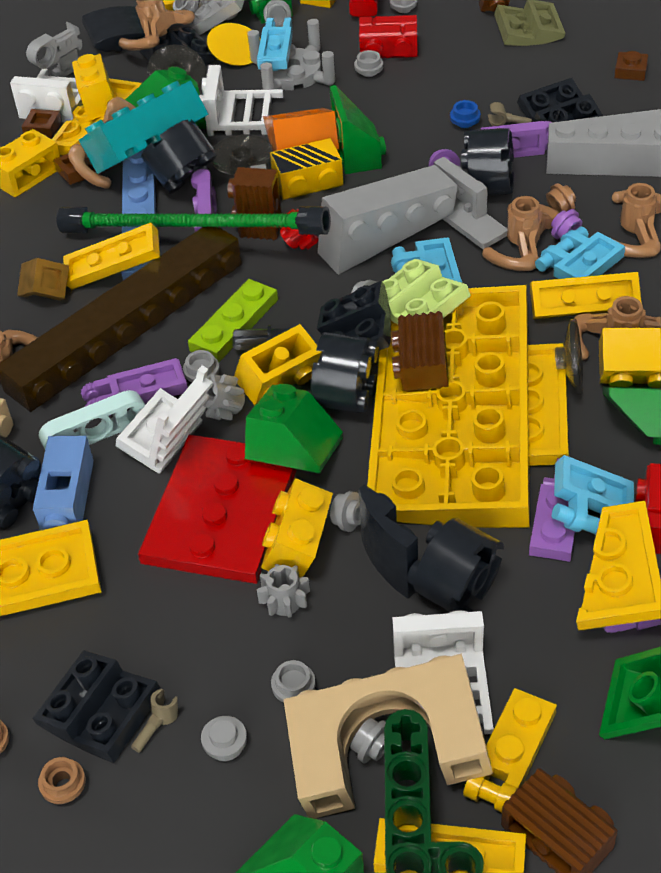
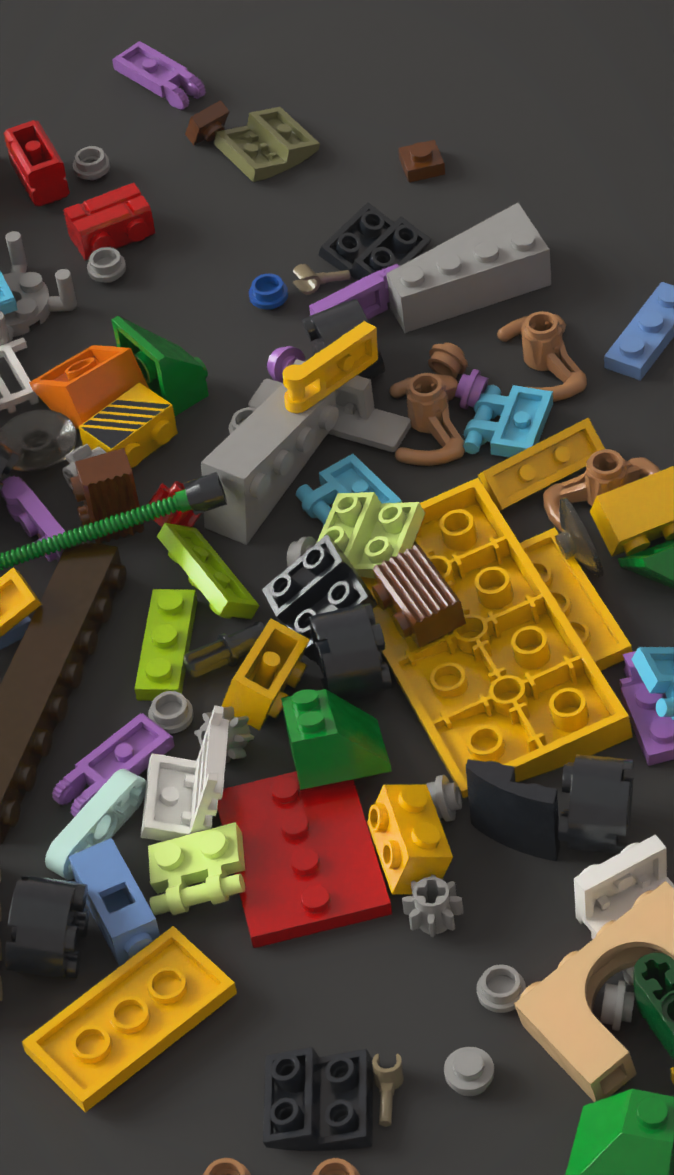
camera: 25 degrees left, 0 degrees up
(139, 479) = (196, 859): none -> yellowish green plate
(293, 281) = (207, 572): none -> lime plate
(457, 166) = (330, 368): none -> yellow plate

